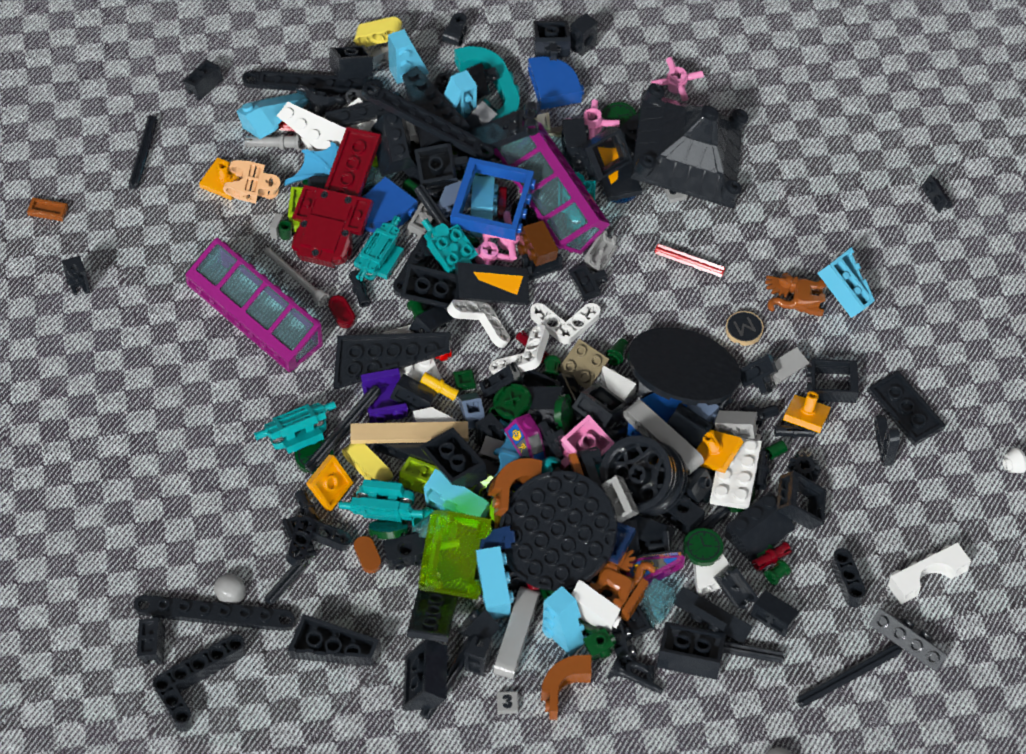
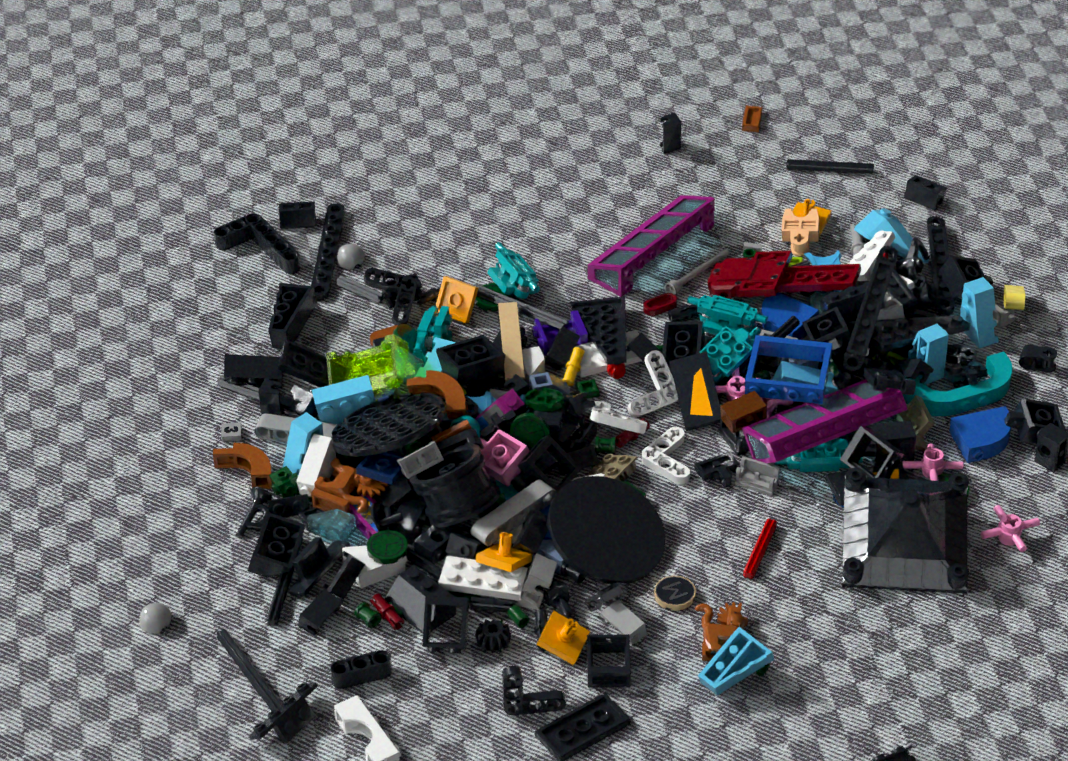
camera: 90 degrees right, 15 degrees down
(367, 462) = (485, 324): light yellow beam -> none

